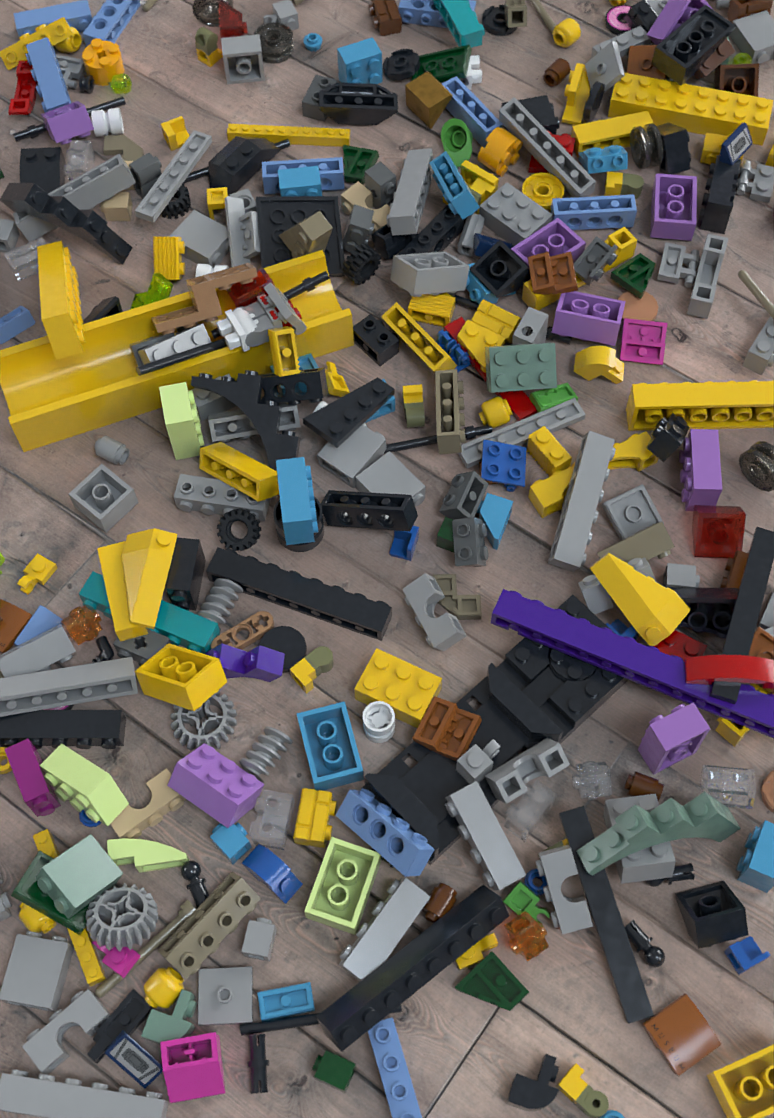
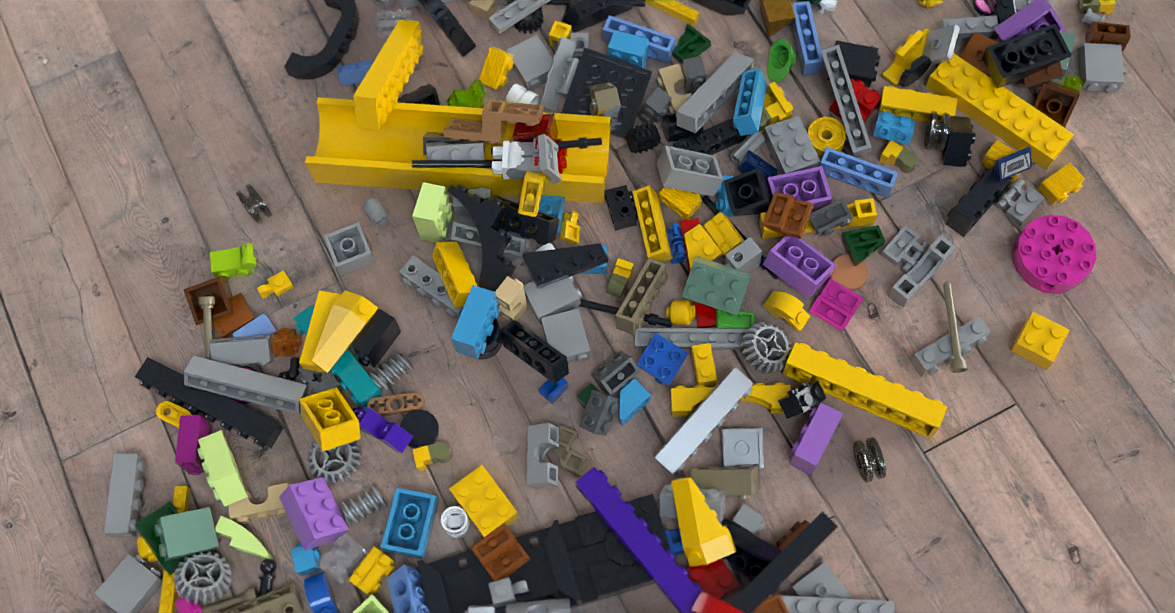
camera: 30 degrees right, 5 degrees up
(252, 529) = (424, 324): black tyre -> none
(301, 593) = (453, 392): black brick -> none
(317, 456) = (511, 299): none -> tan arch
(500, 151) = (810, 84): light orange brick -> none
(556, 72) = (902, 29): reddish brown brick -> none
(601, 407) = (759, 349): none -> light grey gear
(673, 207) = (929, 196): medium lavender brick -> none
(717, 530) = (802, 494): clear red slope -> none

